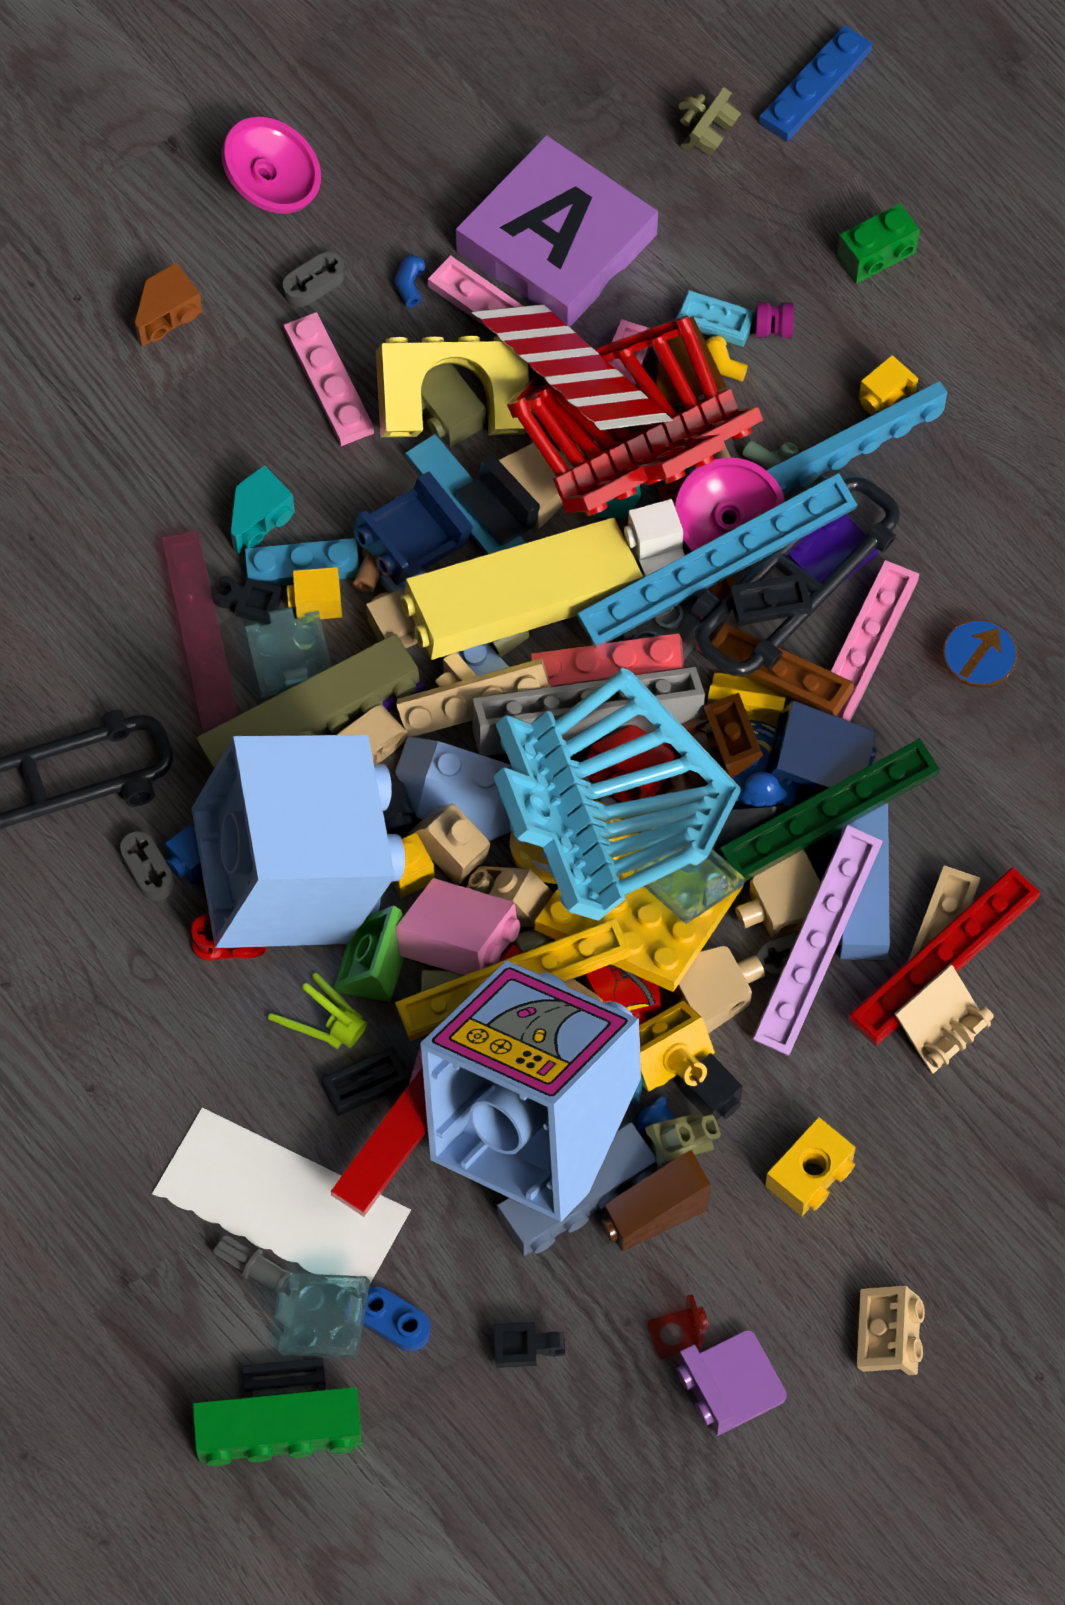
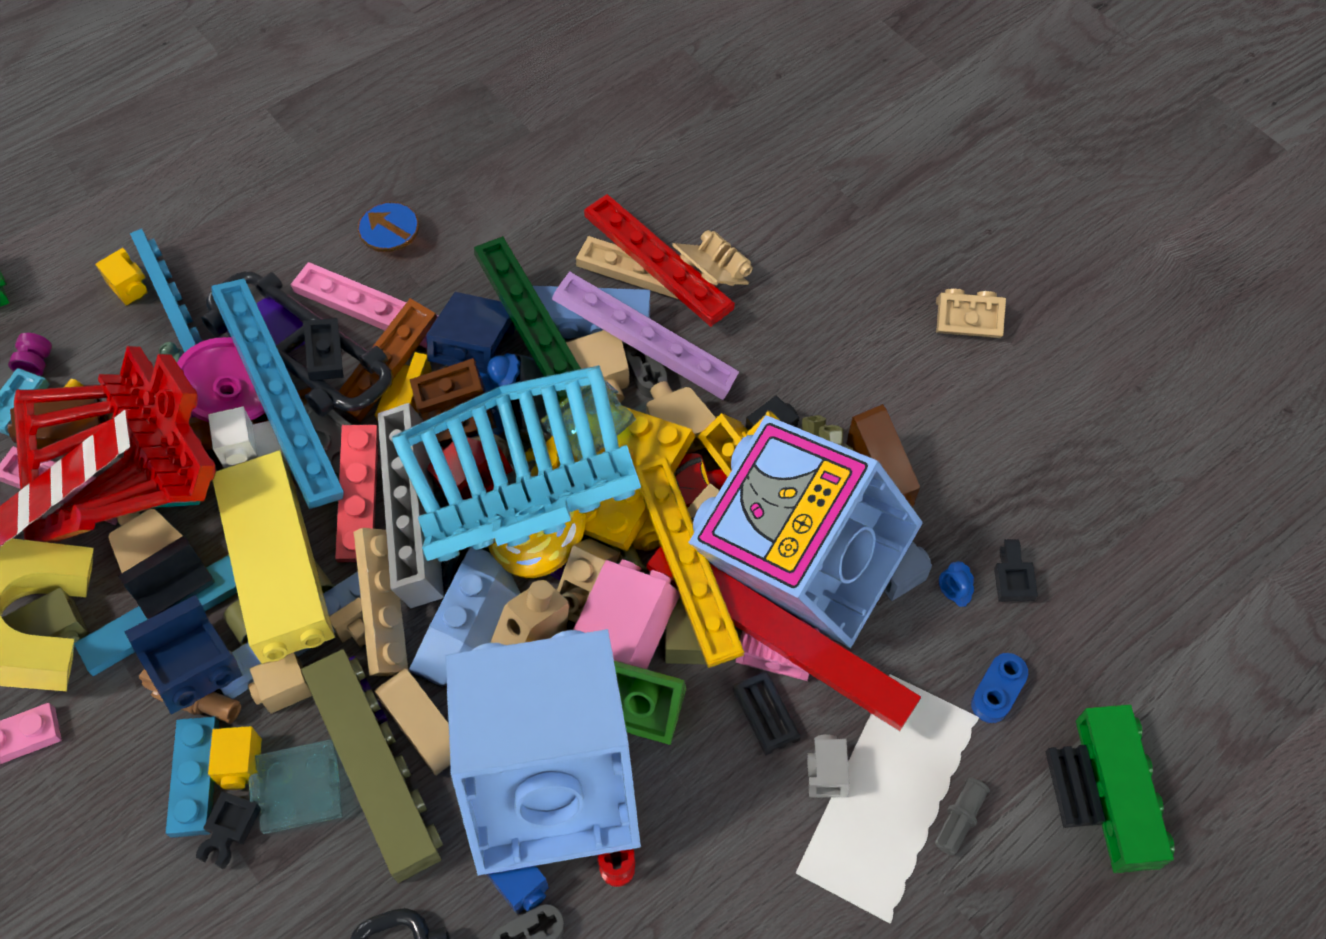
camera: 90 degrees left, 5 degrees down
(200, 630) = (255, 882): clear pink tile -> none
(258, 508) = (117, 818): teal slope -> none
(301, 1134) = (828, 768): none -> light grey brick
(322, 1315) = (1011, 744): clear light blue piece -> none
(344, 1023) = (711, 730): lime plant -> none
(514, 1286) = (959, 581): none -> blue piece
(691, 1320) = (981, 446): clear red bracket -> none
(731, 1381) = (1027, 421): medium lavender bracket -> none
(816, 1146) = (845, 374): yellow brick -> none

